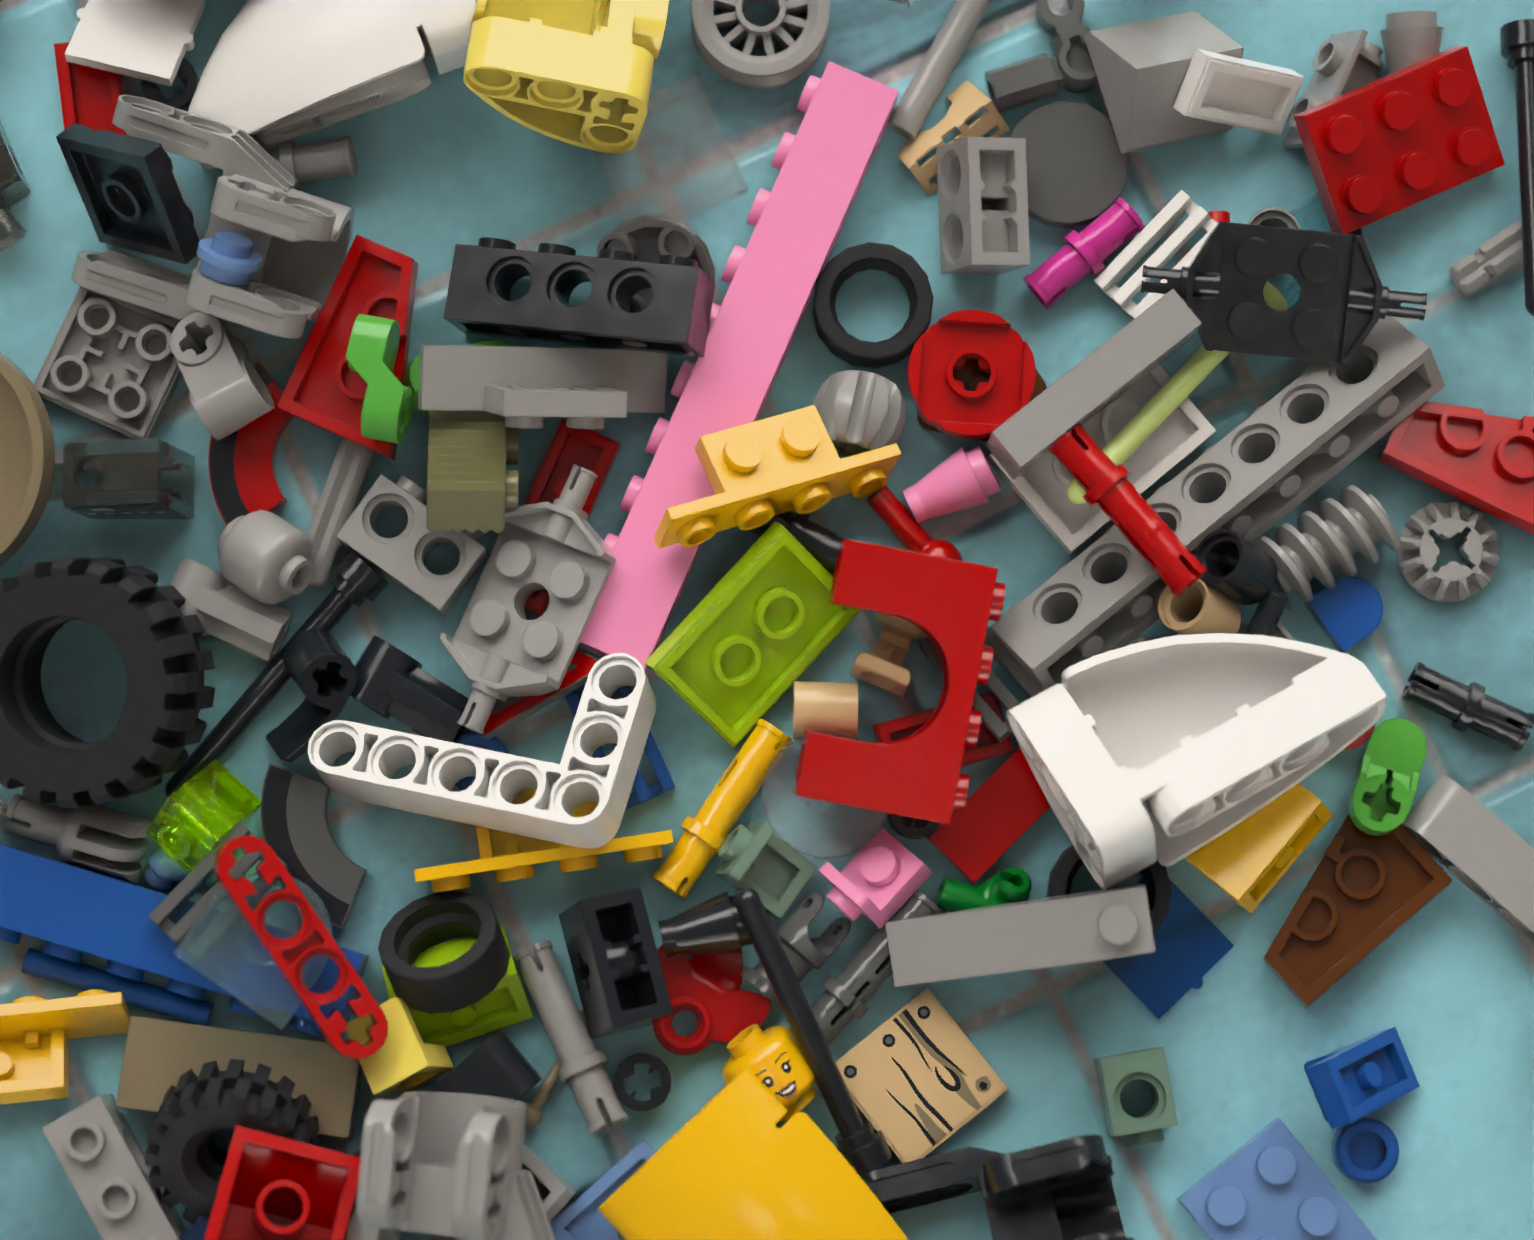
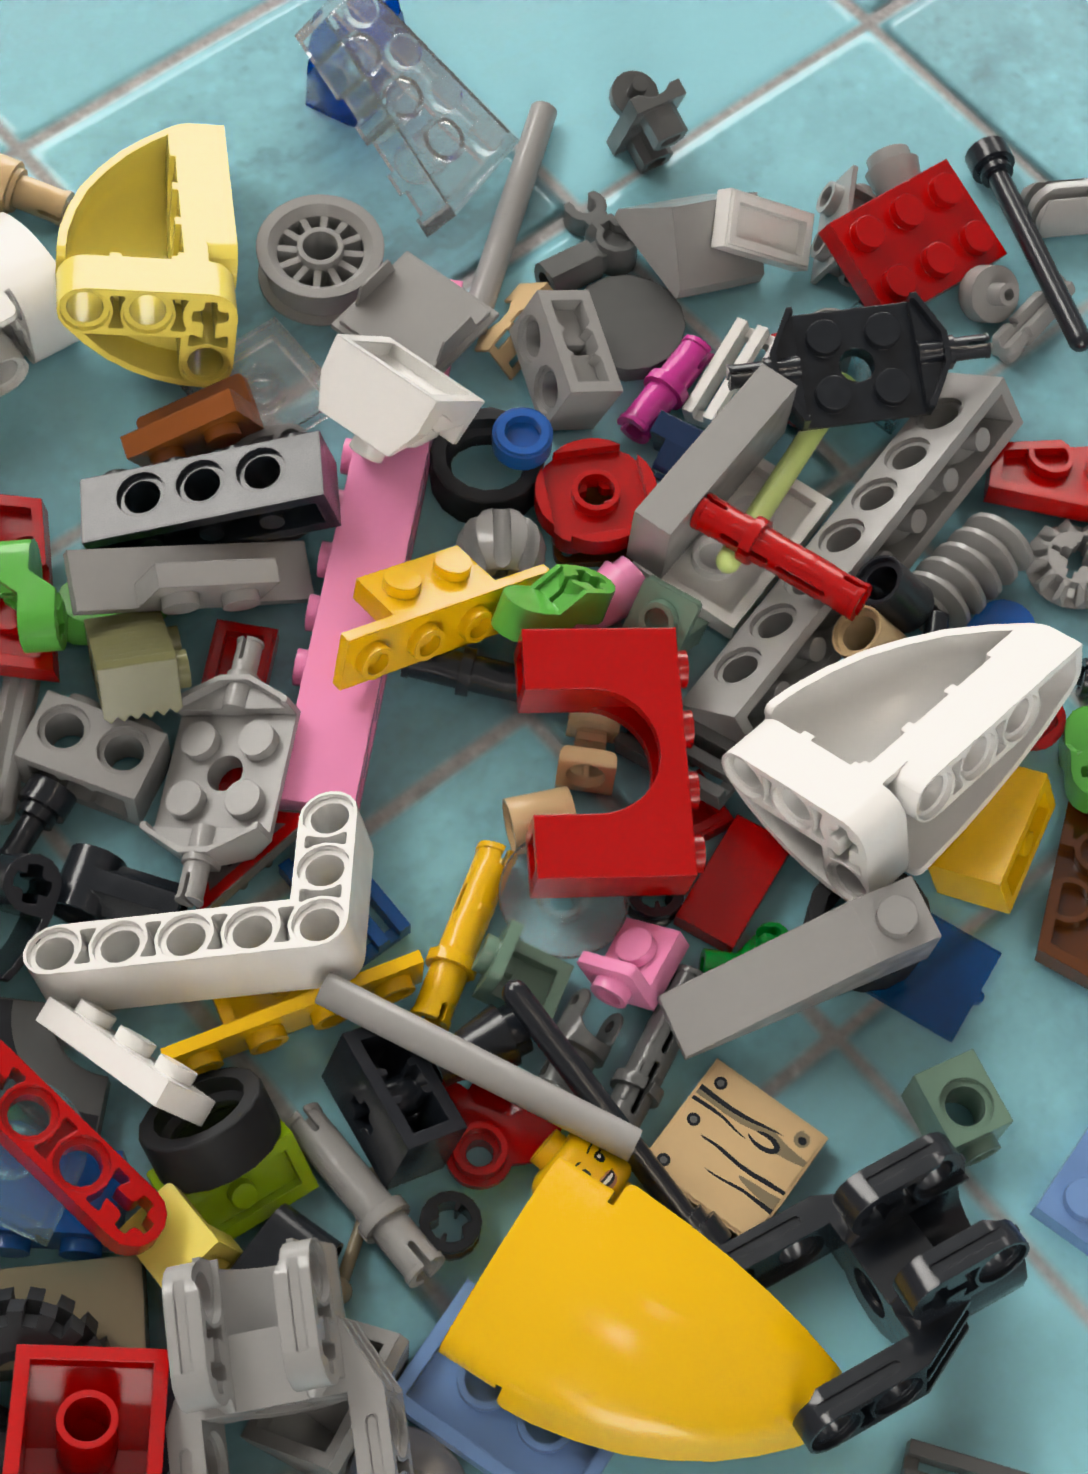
camera: 15 degrees left, 20 degrees down
(381, 873) = (128, 1058): none -> white plate
(583, 195) = (195, 423): none -> dark orange bracket
(696, 961) = (478, 1066): none -> light grey piece
(752, 635) = (451, 763): lime tile -> none
(784, 241) = (391, 397): none -> white brick
(836, 130) = (417, 311): none -> light grey piece
(894, 499) = (555, 601): none -> bright green piece
(911, 296) = (522, 438): none -> blue tile
(1003, 531) = (666, 607): none -> sand green bracket
(1077, 330) = (672, 440): none -> dark blue tile
(1465, 213) = (988, 293): none -> light grey tile

